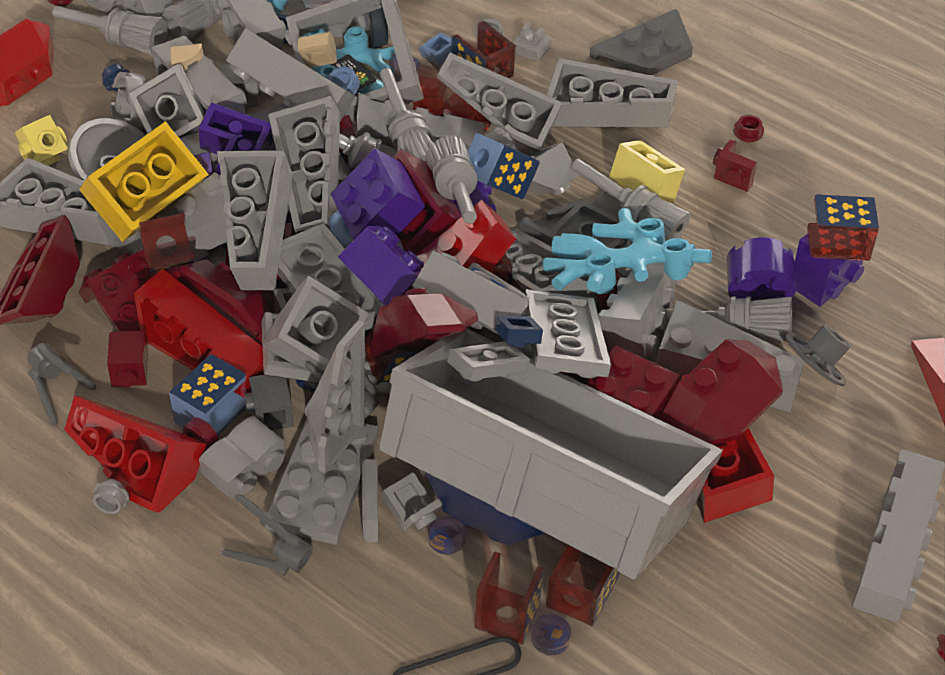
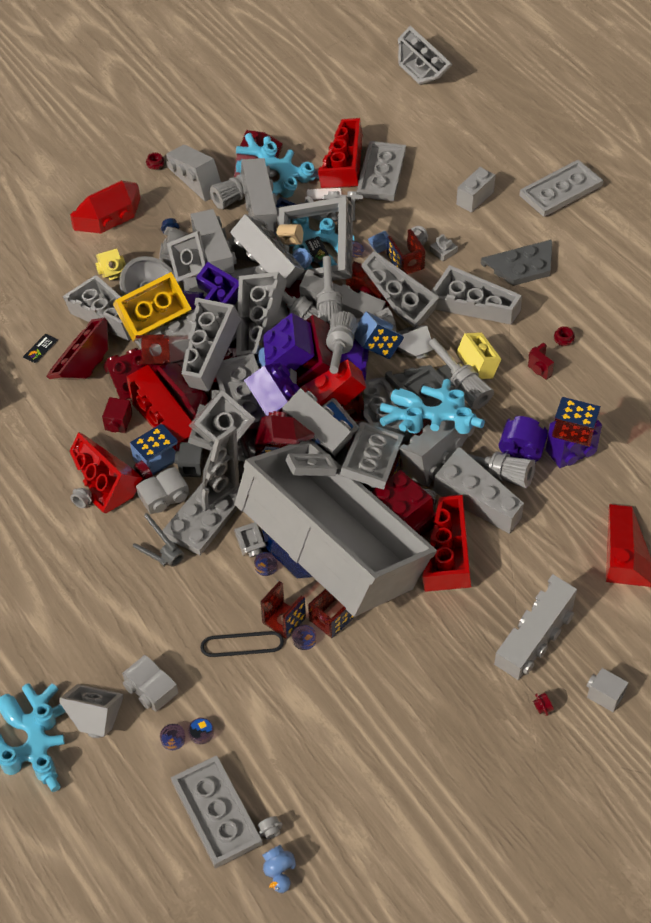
camera: 20 degrees right, 5 degrees up
(49, 365) = (71, 408): dark grey plant -> none
(122, 27) = (184, 193): light grey piece -> none
(186, 55) = (205, 224): tan tile -> none
(370, 500) = (227, 533): light grey tile -> none
(518, 330) = (336, 449): dark blue plate -> none
(725, 392) = (457, 513): dark red wedge -> none
(825, 348) = (540, 498): dark grey wheel -> none

